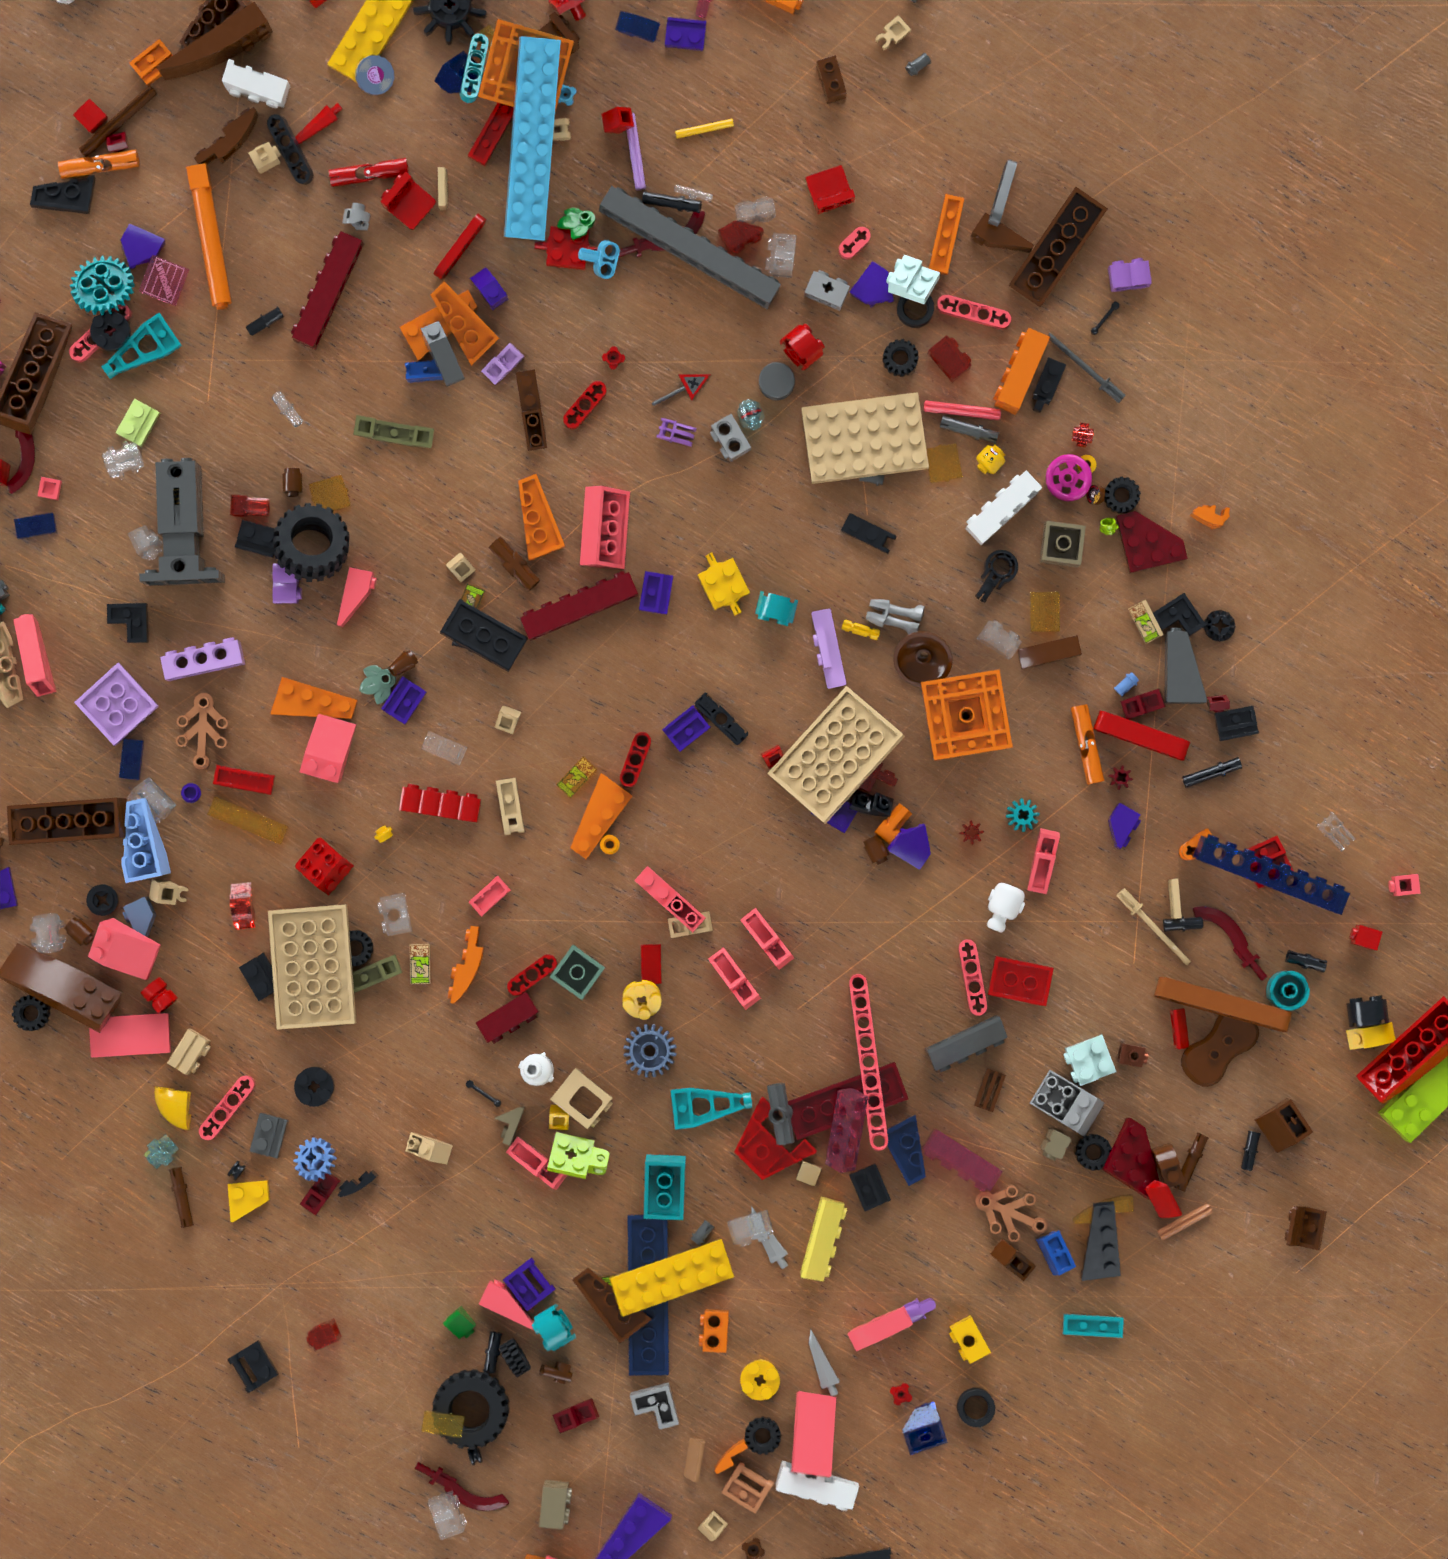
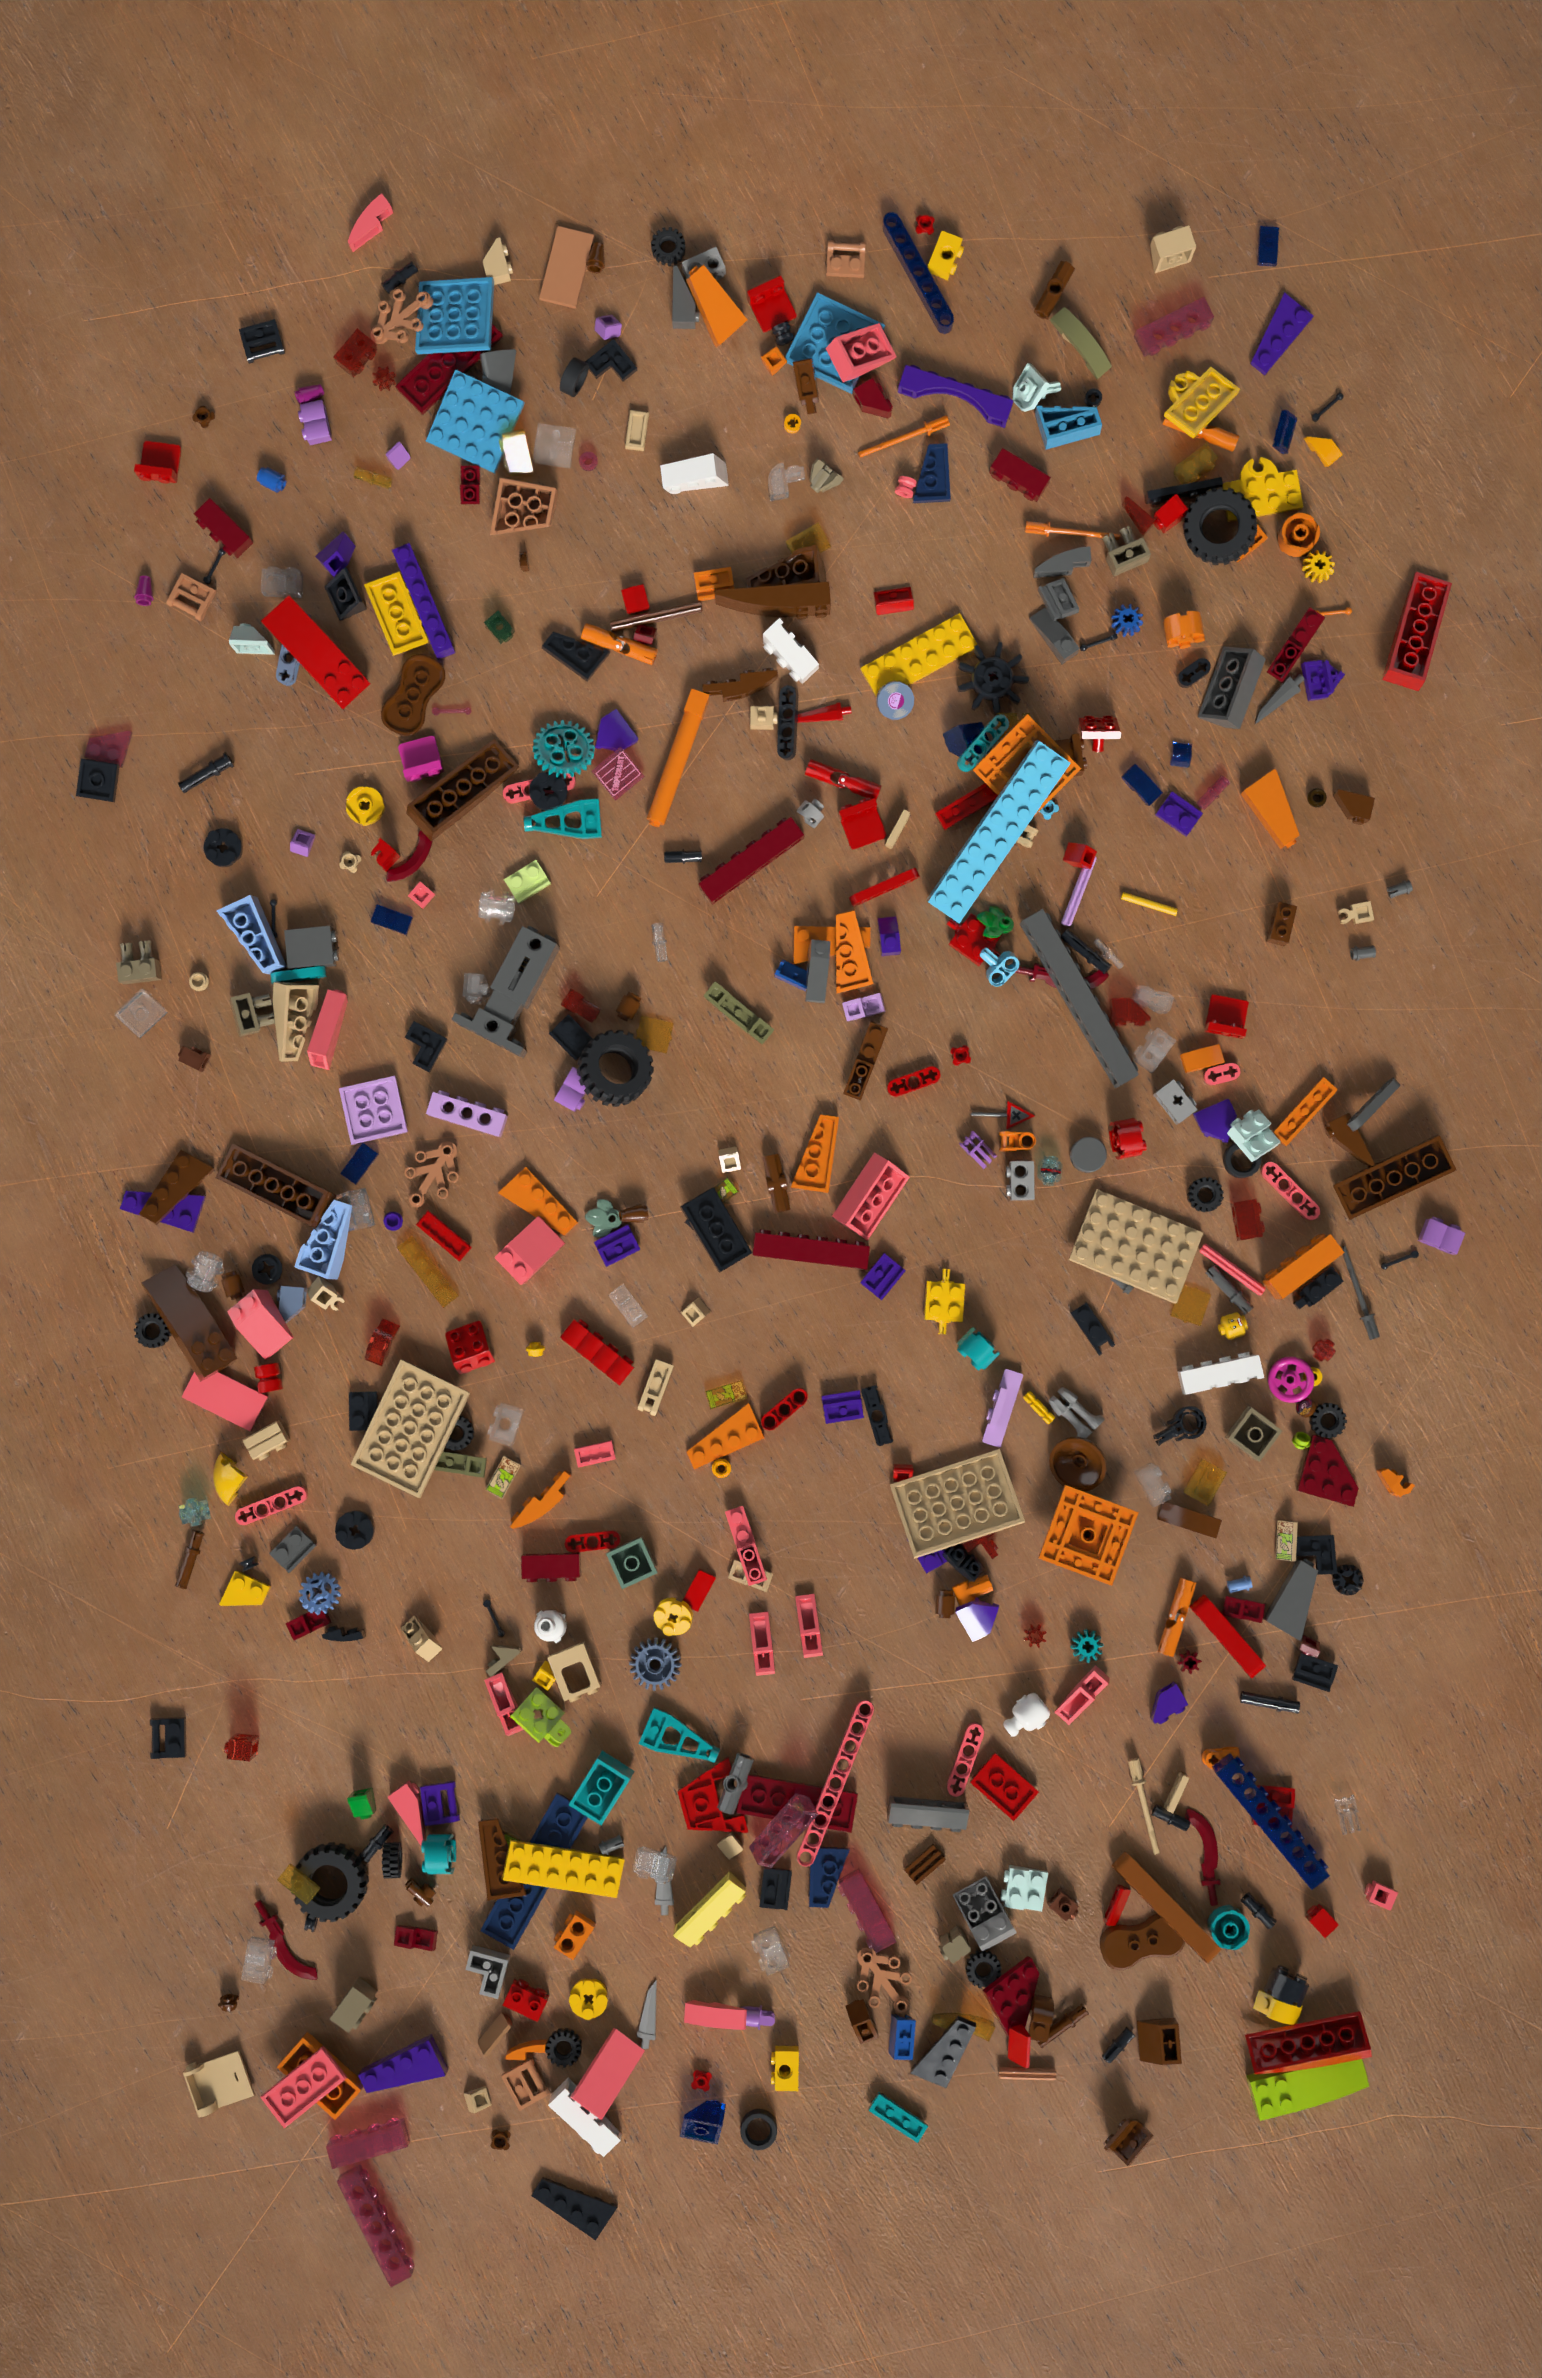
camera: 35 degrees right, 0 degrees up
(356, 590) = (630, 1129): coral slope -> none
(705, 406) = (1015, 1141): none -> orange piece
(705, 1412) = (526, 2000): none -> red brick
(828, 238) = (1202, 1058): none -> orange slope
(897, 1244) = (770, 1950): none -> clear brick

